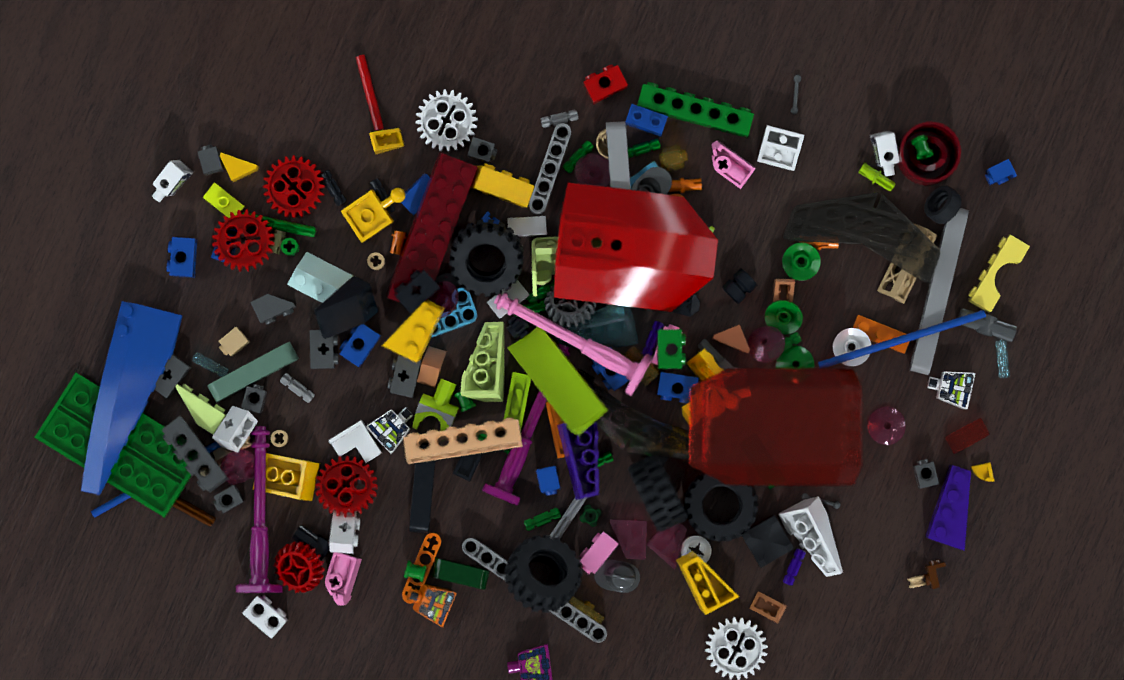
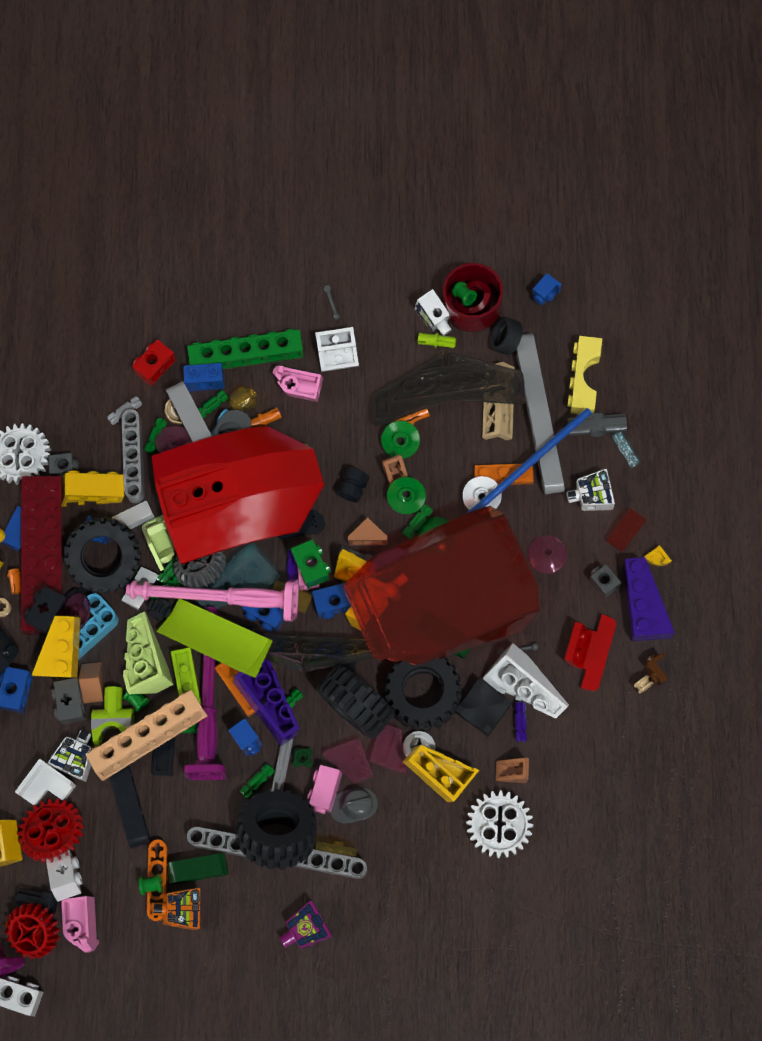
camera: 15 degrees left, 15 degrees down
(769, 351) = (405, 530): clear pink dish -> none
(884, 530) = (590, 650): none -> red plate

